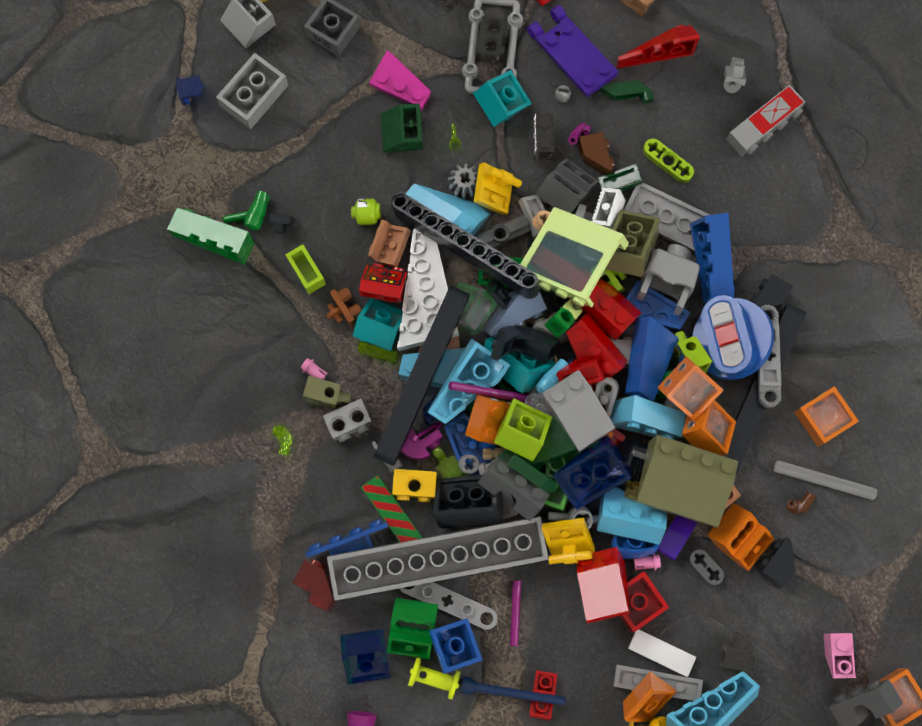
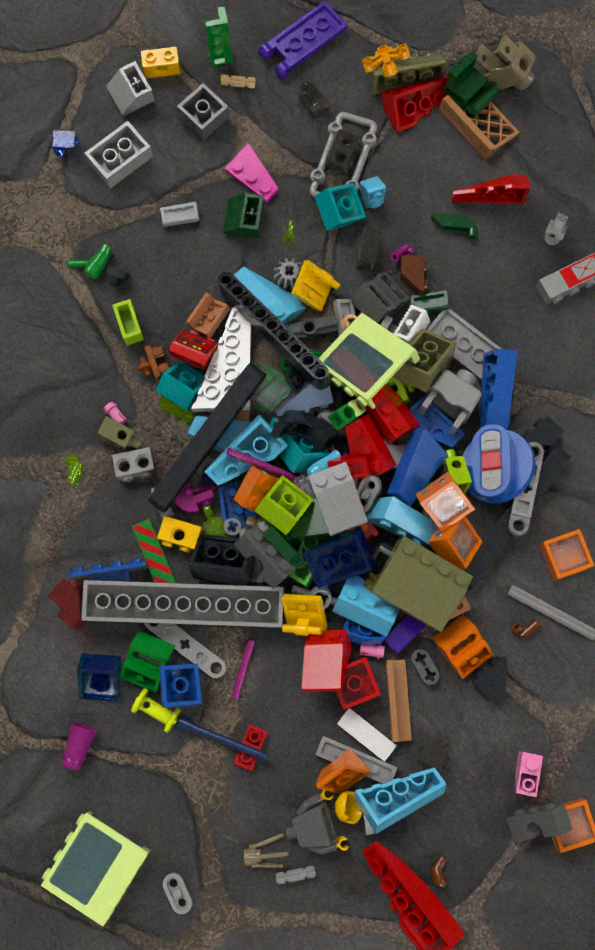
camera: 15 degrees right, 0 degrees up
(211, 235) = (53, 274): wedge -> none
(332, 141) = (179, 214): none -> light grey plate
(366, 211) = (194, 282): lime head -> none
(532, 75) = (372, 192): none -> medium azure slope
(563, 96) = (396, 217): light grey hinge -> none
(573, 53) = (414, 179): dark purple hinge -> none
(668, 152) = (478, 286): lime beam -> none
(686, 609) = (398, 700): none -> medium nougat fence

